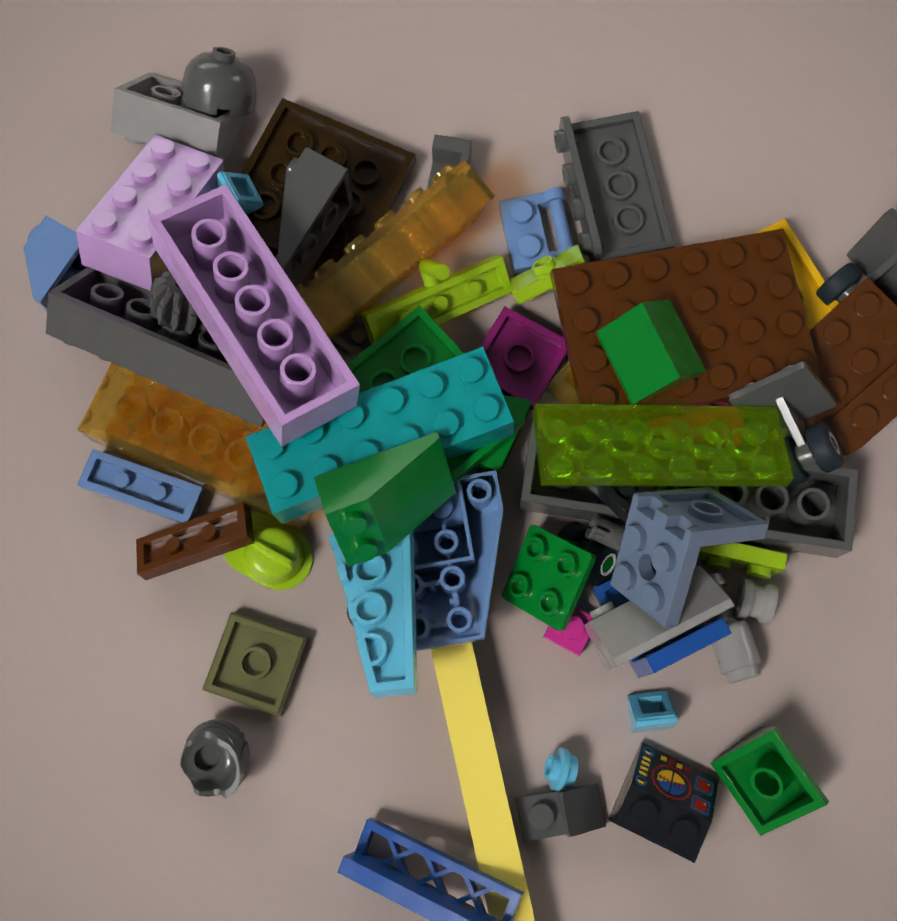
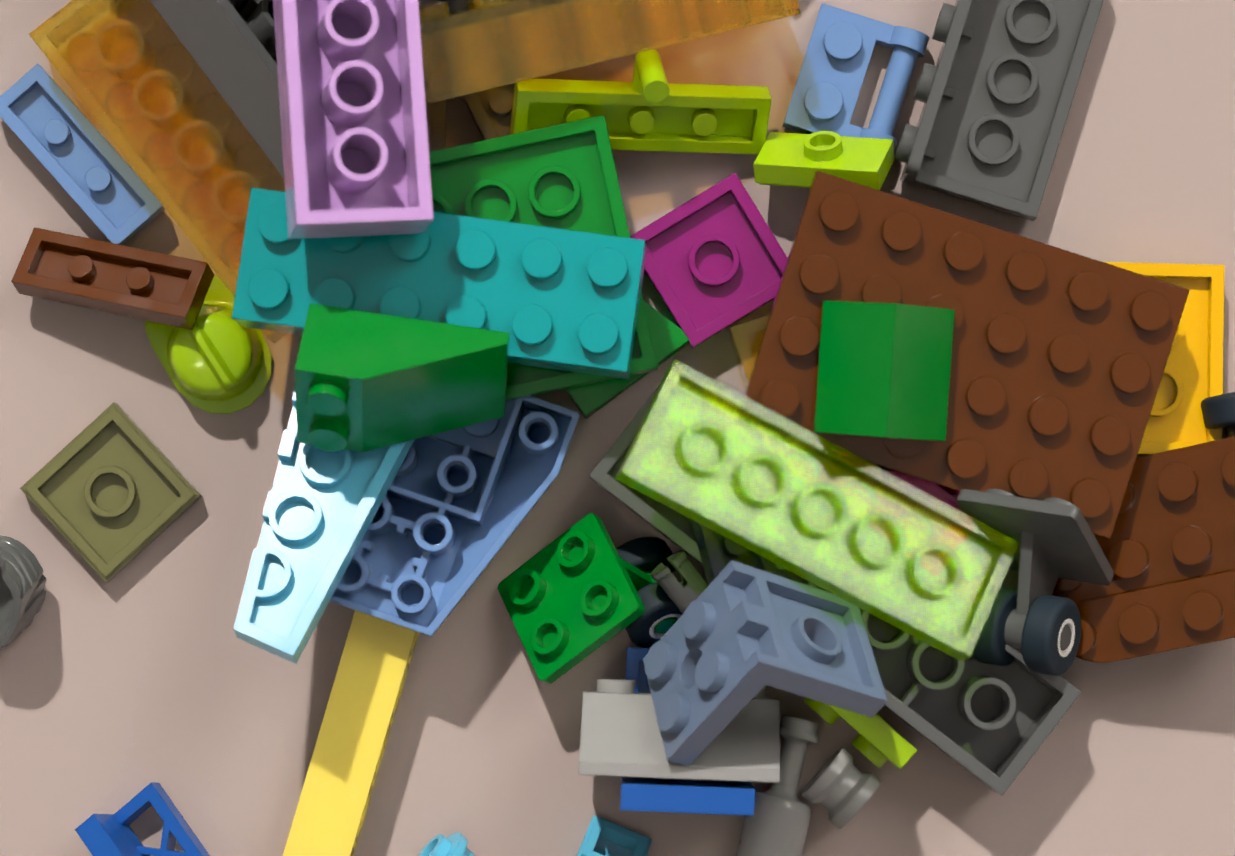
camera: 30 degrees right, 10 degrees up
(574, 636) = (565, 695): dark pink plate -> none

